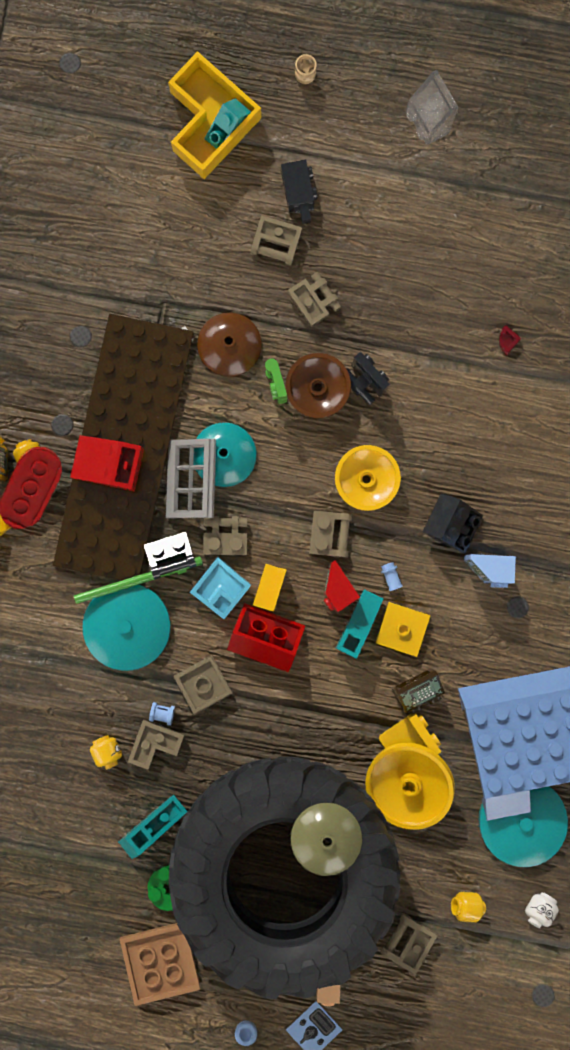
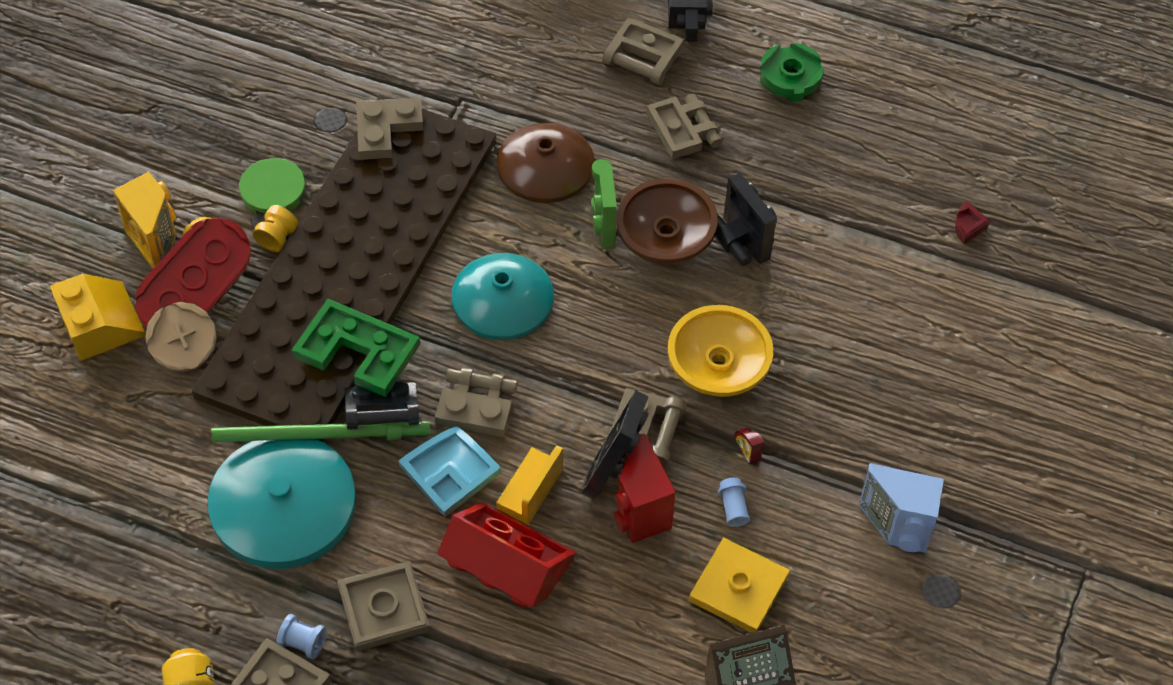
camera: 15 degrees right, 30 degrees down
(34, 530) = (181, 337): none -> tan tile
(58, 401) = (272, 183): none -> bright green tile
(69, 436) = (273, 231): none -> yellow wheel
(107, 462) = (325, 259): red slope -> none
(115, 338) = (381, 117): none -> dark tan plate
(133, 508) = (385, 345): none -> green plate
(208, 478) = (463, 326): light grey piece -> none
(317, 567) = (619, 441): none -> black plate
(359, 624) = (663, 561): teal slope -> none
(367, 244) = (791, 85): none -> green plate
(394, 534) = (750, 443): none -> dark red tile
(453, 523) = (847, 439): black slope -> none

